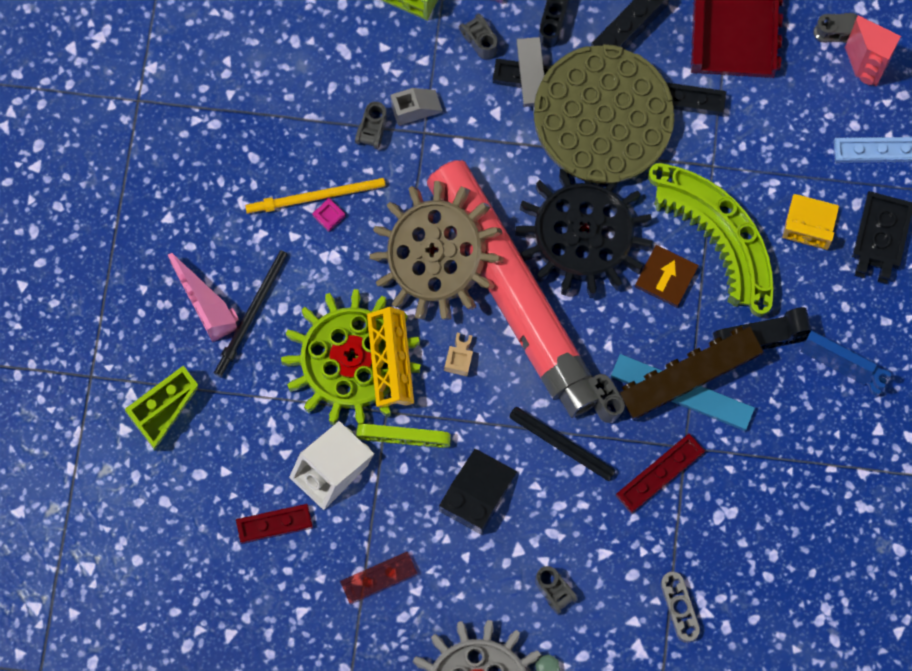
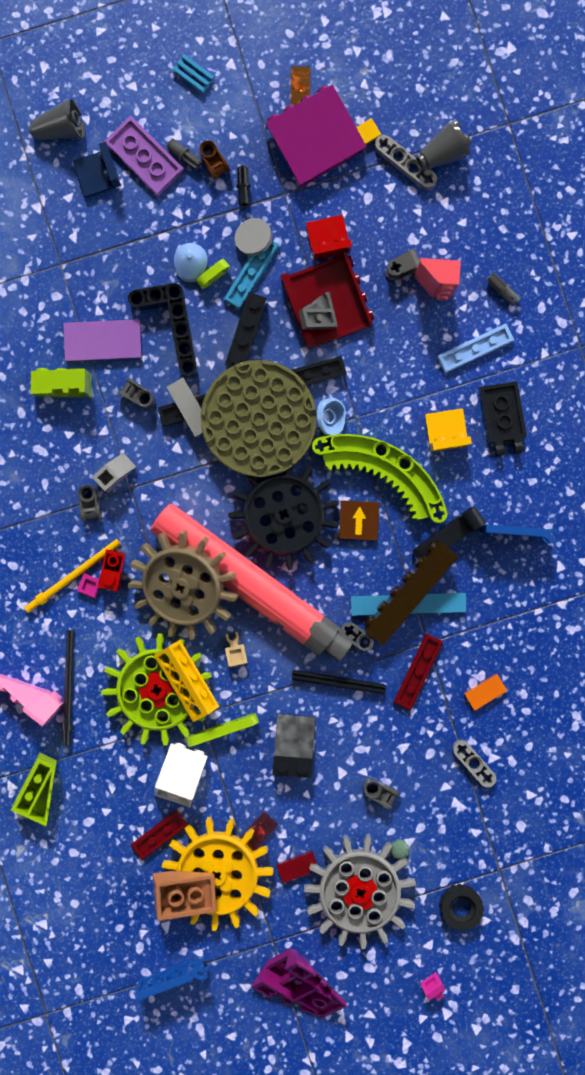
camera: 25 degrees left, 15 degrees up
(274, 593) = (183, 894): none -> nougat slope
(335, 591) = (226, 882): none -> yellow gear
(363, 207) = (112, 570): none -> red slope
(415, 633) = (296, 866): none -> dark red tile
(686, 147) = (331, 416): none -> light blue hat
(720, 36) = (319, 314): none -> dark grey wing
(729, 531) = (485, 692): none -> orange tile

